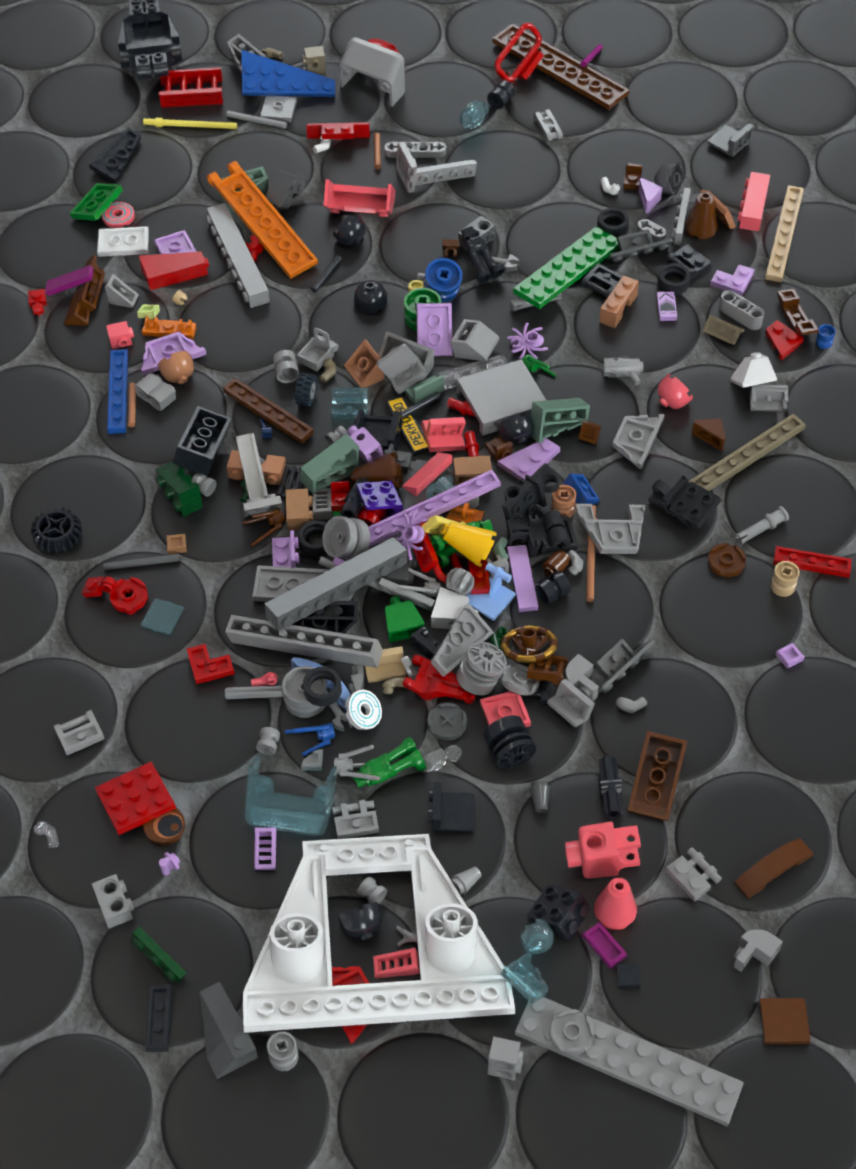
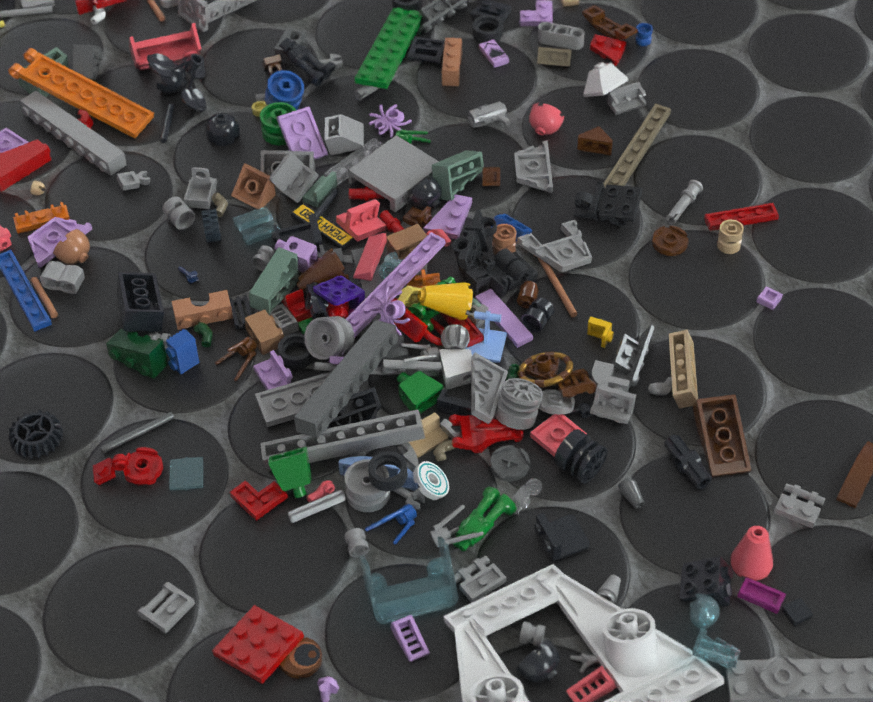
camera: 25 degrees left, 5 degrees down
(148, 310) = (10, 209): yellowish green plate -> none
(176, 544) = (162, 404): medium nougat tile -> none
(214, 501) = (182, 351): none -> blue brick
(245, 651) = (292, 470): none -> green torso
(258, 500) = (210, 318): light grey bracket -> none
(263, 319) = (130, 180): none -> light grey plate
(268, 410) = (183, 257): reddish brown plate -> none
(313, 761) = (408, 545): light grey tile -> none
(374, 224) = (193, 65): none -> black plant
(506, 472) = (442, 234): none -> coral arm
(577, 562) = (544, 287): light grey arm -> none
(603, 849) = (714, 524): coral piece -> none
(605, 625) = (600, 329): none -> yellow bracket
(658, 694) = (683, 368): none -> tan brick

